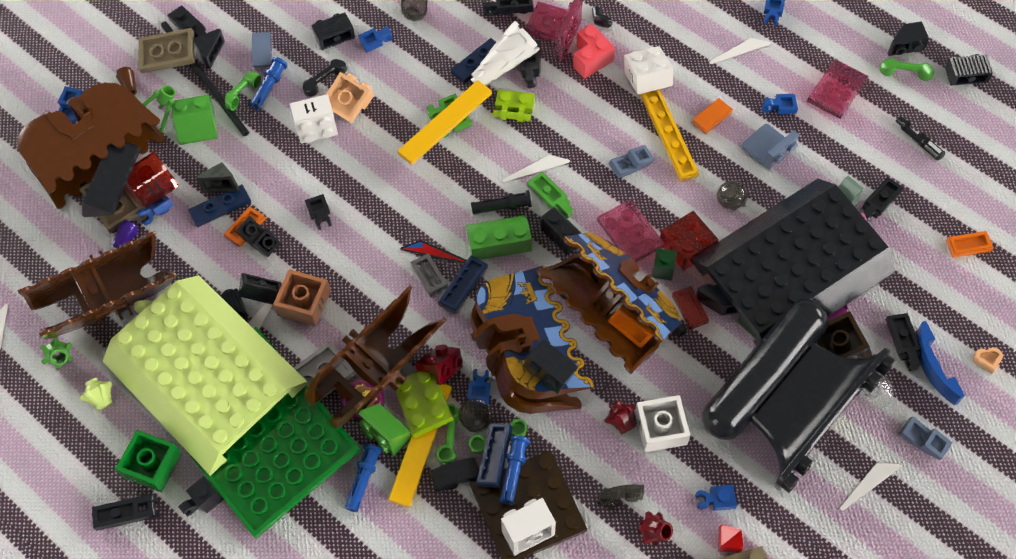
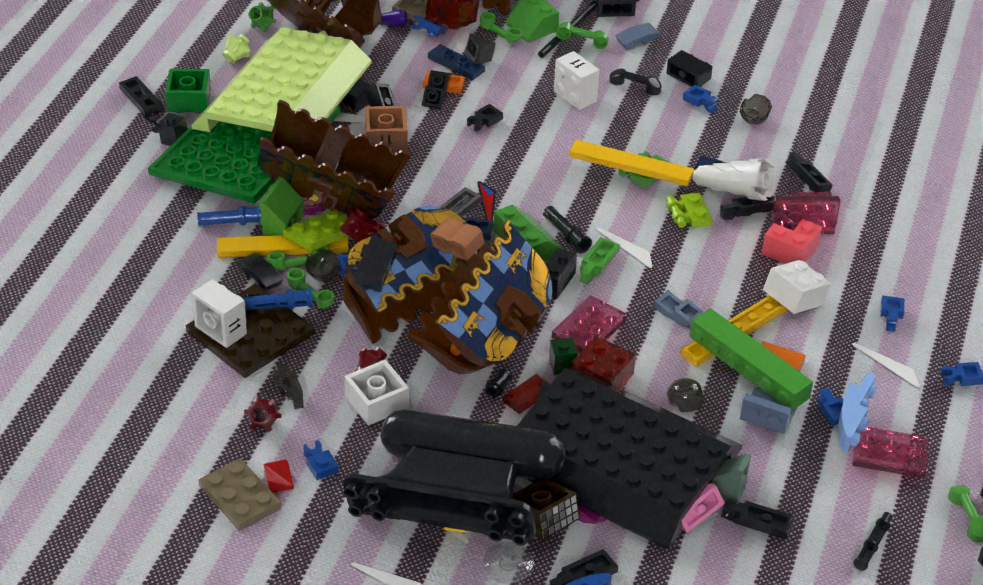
camera: 65 degrees right, 20 degrees down
(208, 146) = (487, 21): none -> bright green bar
(272, 76) = (612, 49): blue pin -> none
(349, 96) = (620, 97): light nougat plate -> none
(494, 455) = (283, 284): dark blue plate -> none
(543, 287) = (457, 238): none -> nougat brick
(600, 19) = (846, 241): black arm -> none
(688, 20) = (892, 309): none -> blue plate
(719, 135) = (751, 359): none -> bright green brick
(808, 96) = (855, 411): none -> light blue slope

